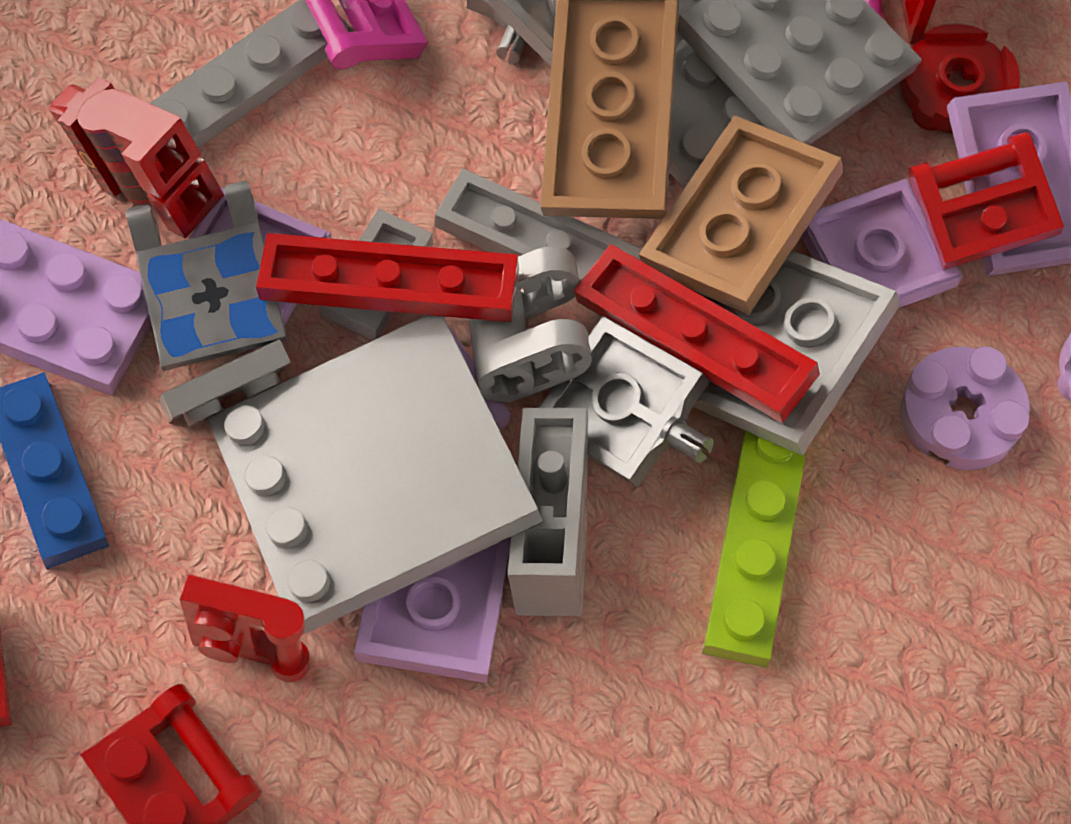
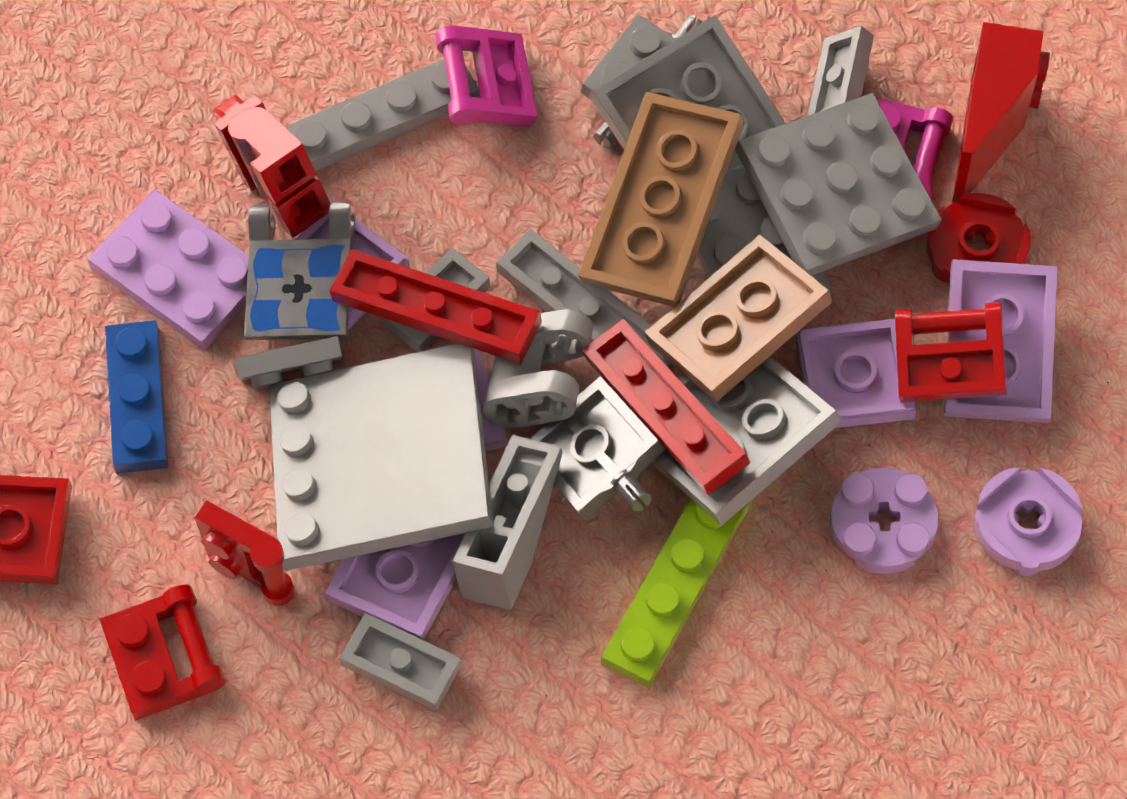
camera: 25 degrees right, 0 degrees up
(470, 711) = (400, 661): none -> light grey plate

